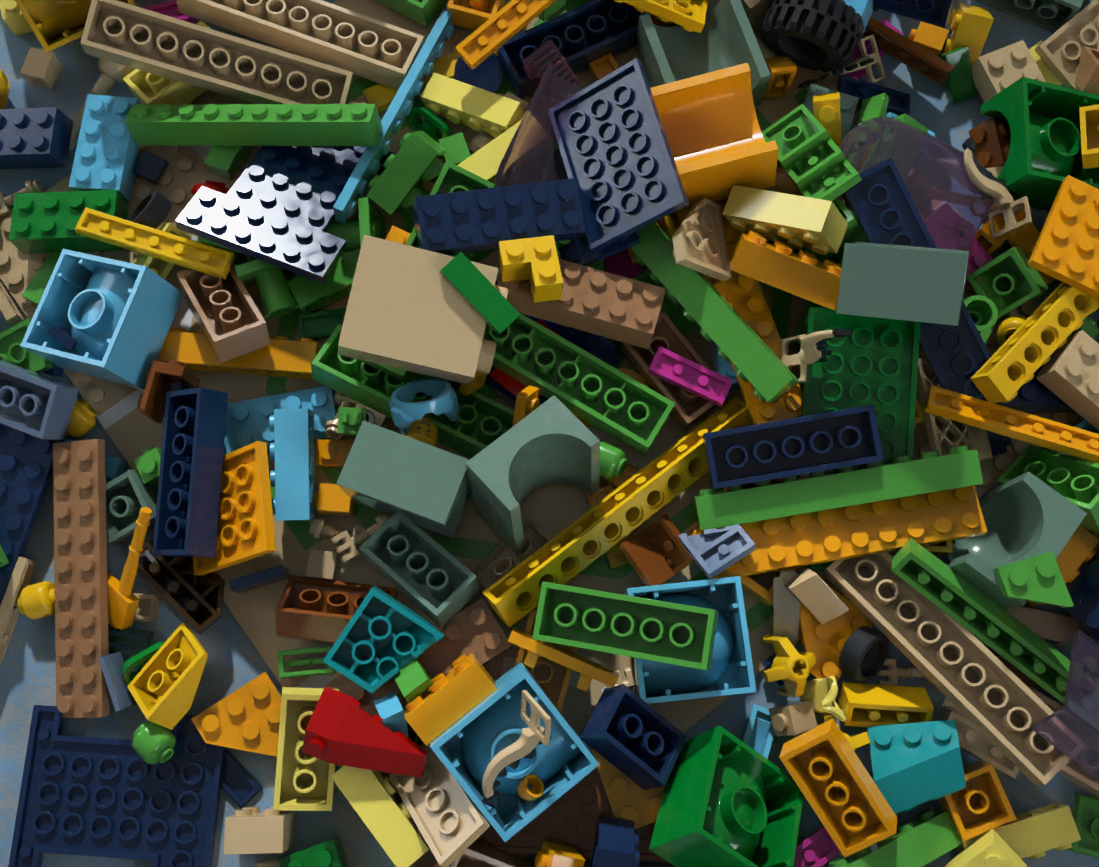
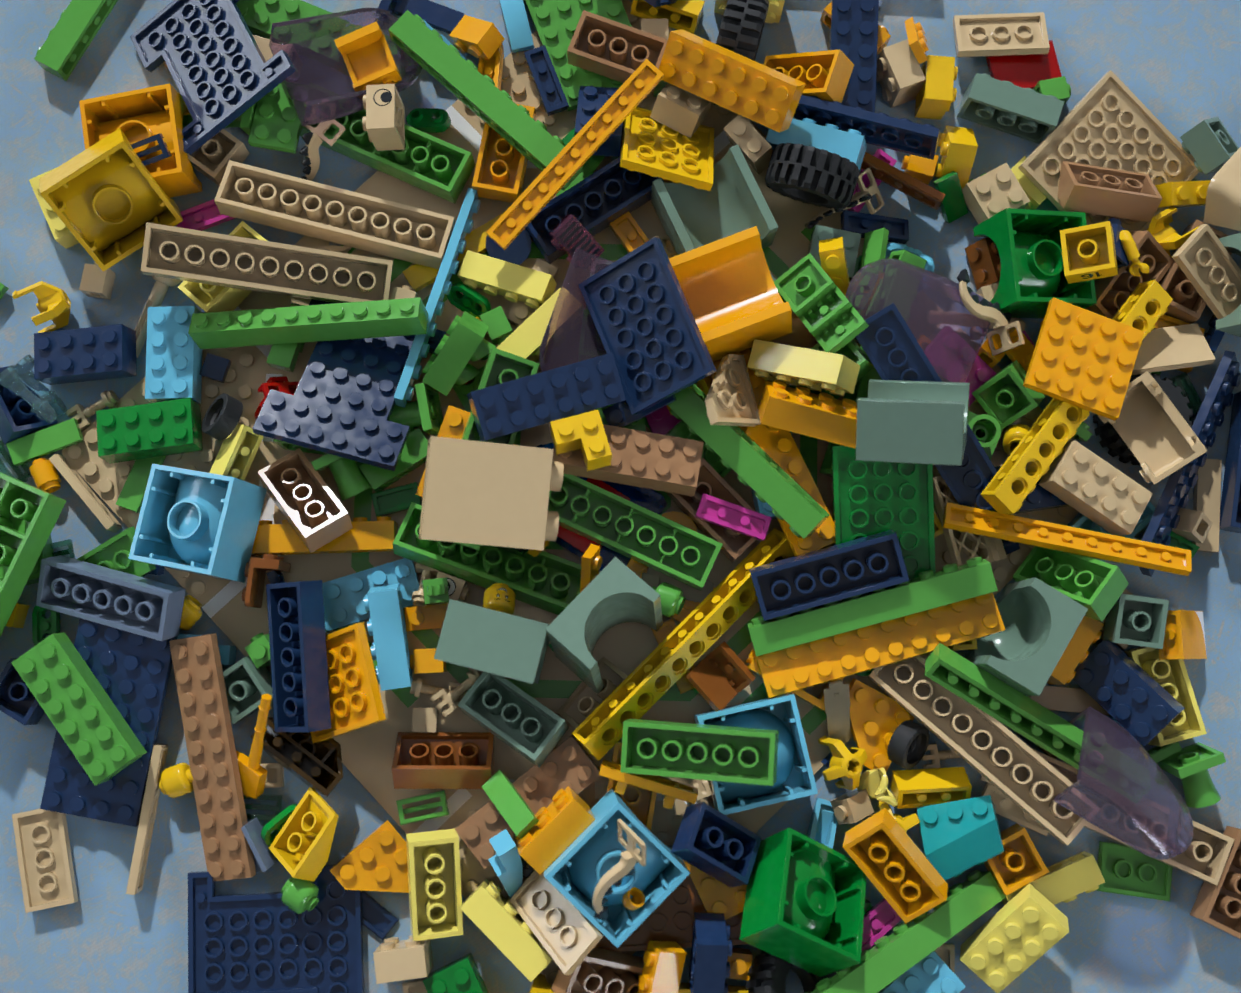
camera: 10 degrees left, 5 degrees up
(63, 336) = (165, 545): dark blue tile -> none
(155, 243) = (234, 446): yellow tile -> none
(259, 579) = (371, 739): dark blue tile -> none
(351, 737) = (473, 874): red wedge -> none
(380, 640) = (488, 787): teal wedge -> none
(405, 413) = (486, 585): medium azure piece -> none
(479, 293) = (540, 475): green tile -> none
(718, 548) = (772, 671): sand blue wing -> none
(782, 76) = (786, 216): light orange slope -> none
(812, 349) = (835, 489): tan piece -> none
(817, 597) = (863, 701): tan slope -> none
(1034, 580) = (1046, 673): bright green wing -> none

